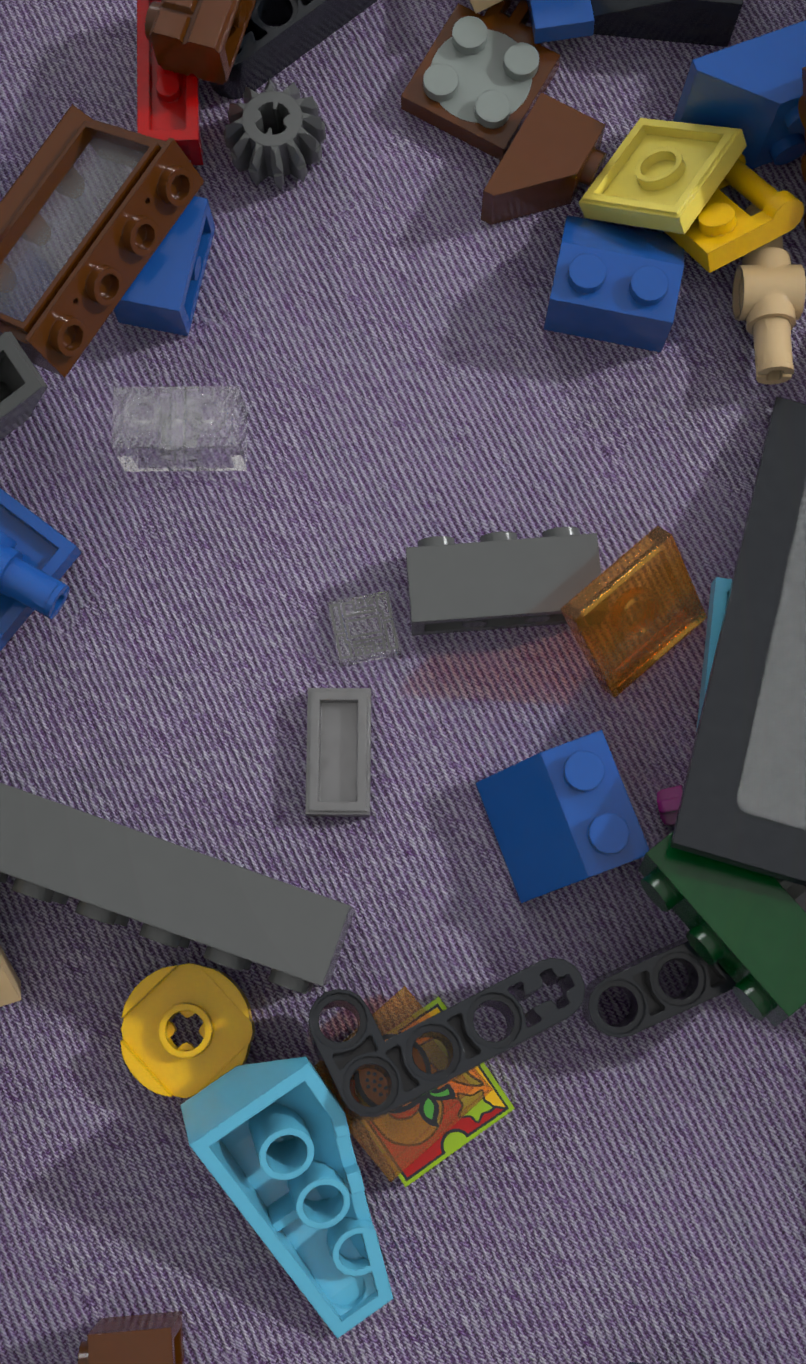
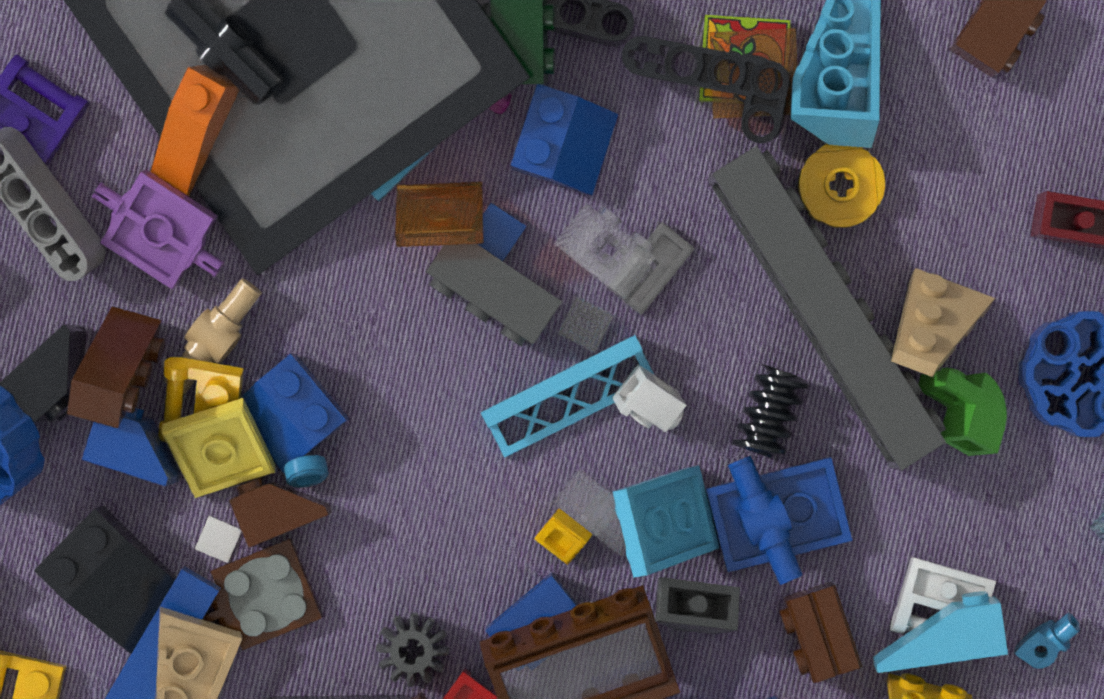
camera: 140 degrees left, 10 degrees up
(63, 691) = (770, 412): none -> black piece
(91, 459) = (665, 521): none -> medium azure plate
(202, 368) = (563, 536): none -> yellow tile
(220, 593) = (649, 400): none -> white brick
(338, 536) = (556, 384): none -> medium azure fence
(436, 709) = (584, 244): none -> clear brick
(545, 227) = (306, 471): none -> dark azure tile
(548, 654) = (500, 231): none -> blue tile
(581, 95) = (218, 539): none -> white sticker

